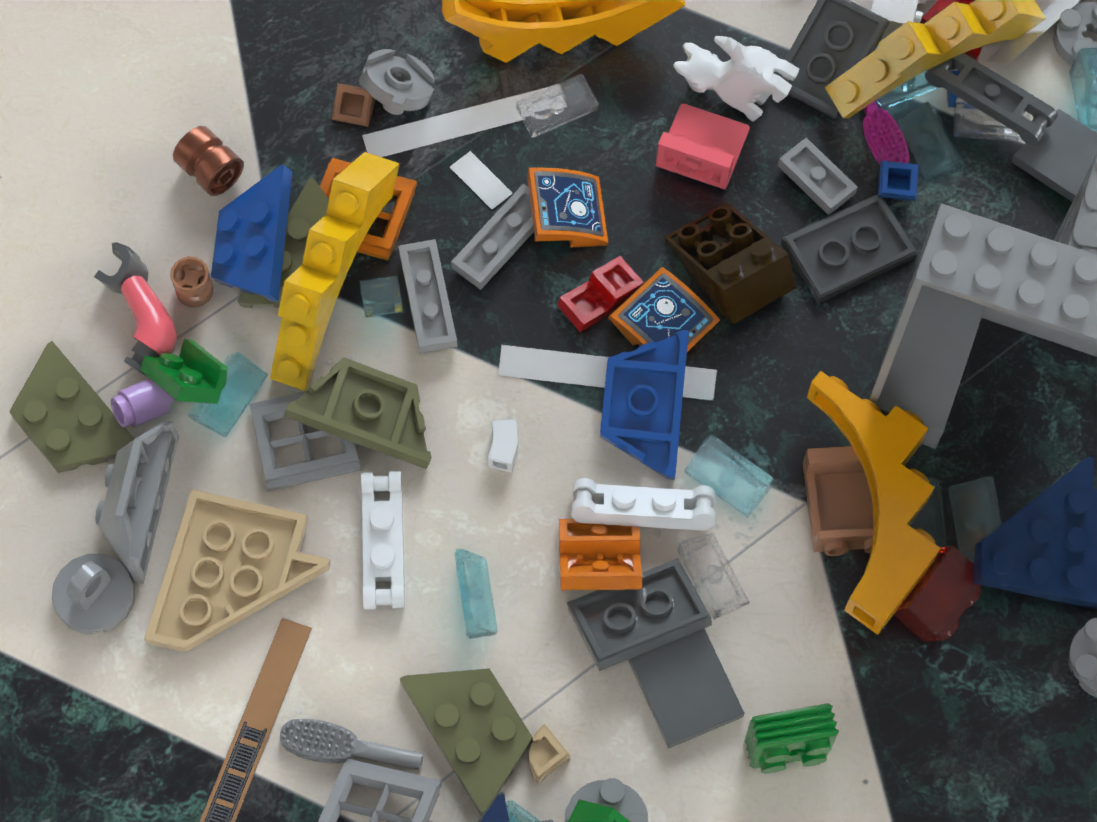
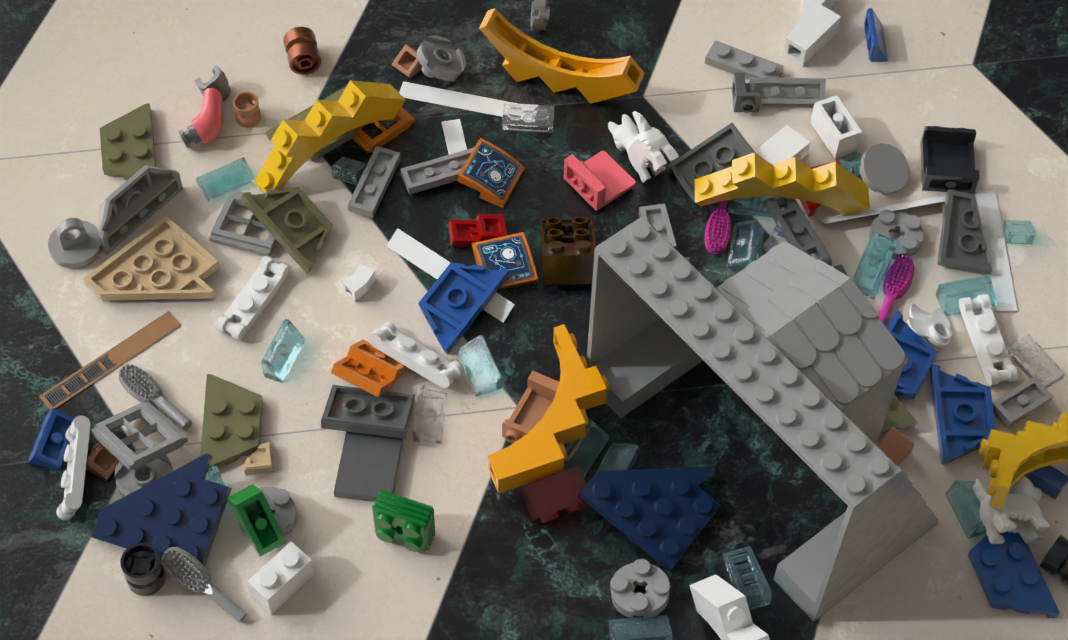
camera: 30 degrees right, 10 degrees down
(140, 403) = (172, 157): lavender brick -> none
(190, 376) = (204, 156): green bracket -> none
(253, 237) = (298, 97): blue wing -> none
(898, 180) = (705, 255): blue slope -> none

